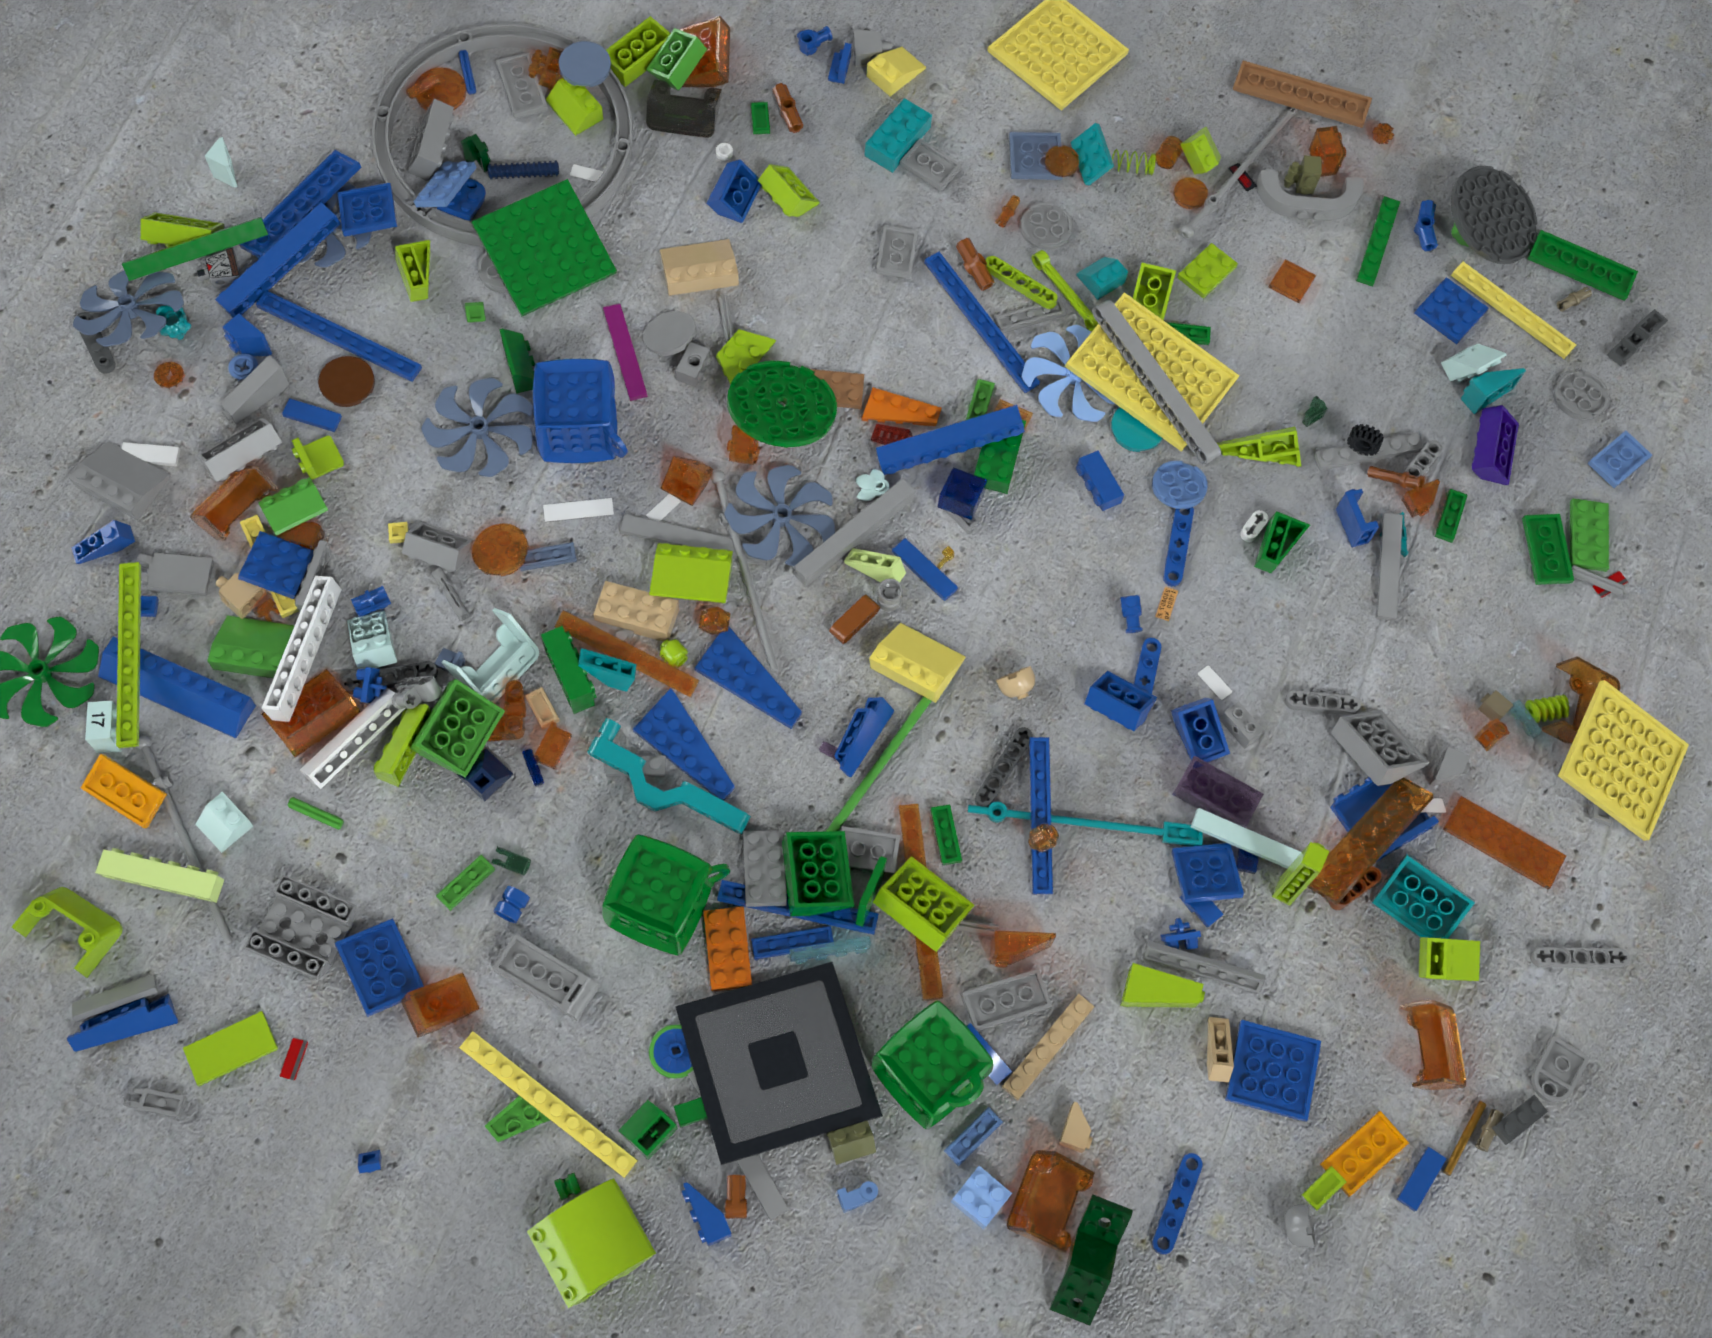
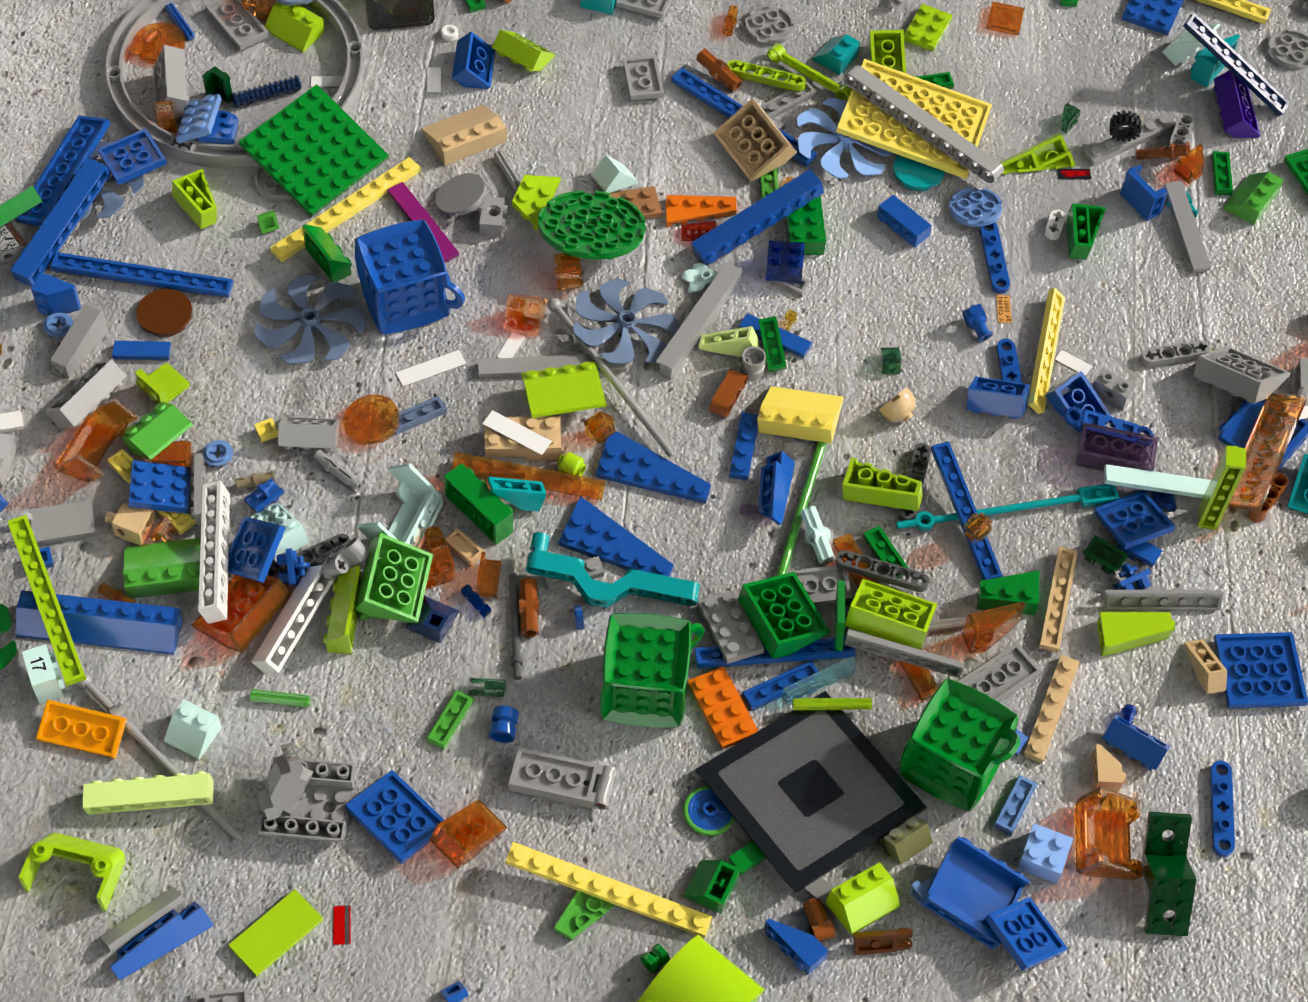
camera: 15 degrees left, 10 degrees down
(201, 664) = (114, 594): none -> clear orange axle
(281, 908) = (284, 784): none -> light grey slope
(338, 657) = (254, 548): none -> blue plate
(341, 537) = (211, 450): none -> medium blue gear
(369, 581) = (253, 480): none -> dark tan pin
(414, 174) = (166, 116): none -> clear orange slope
(450, 656) = (353, 531): sand blue bracket -> none
(549, 839) = (516, 658): none -> dark grey bar
(559, 316) = (348, 207): none -> light yellow plate
(579, 790) = (529, 607): none -> dark orange piece
(623, 813) = (579, 616): none -> blue tile
(629, 606) = (517, 432): none -> white sticker
(691, 199) = (433, 79): none -> white sticker
(786, 1190) = (864, 898): none -> lime slope
(789, 1237) = (882, 941): none -> reddish brown hinge
(827, 352) = (612, 175): none -> light aqua slope
(832, 979) = (832, 704): none -> lime axle
(849, 680) = (744, 446): none -> blue plate
(884, 797) = (817, 535): none -> light aqua piece
(895, 1217) = (971, 887): none -> blue panel
(916, 579) = (772, 344): none -> green plate
(920, 949) = (904, 653): none -> light grey tile
(928, 1276) = (1026, 933): none -> blue plate
(937, 863) = (889, 577): none -> dark grey beam
(963, 764) = (880, 487): none -> lime wedge
(980, 353) = (754, 141): none -> tan slope
(1029, 629) = (891, 360): none -> clear green bracket
(1052, 915) = (1010, 590): none -> green wedge
(1098, 934) = (1058, 599): none -> tan plate
(1115, 1110) = (1135, 743): none -> blue brick
(1119, 1080) = (1129, 712): none -> clear blue pin
(1163, 902) = (1105, 555): none -> dark green bracket
(1190, 663) = (1046, 351): none -> light yellow plate
(1211, 756) = (1095, 418): none -> blue piece
(1296, 474) = (1074, 174): none -> sticker
(1473, 551) = (1254, 196): none -> bright green slope
(1508, 402) = (1236, 64): none -> plate

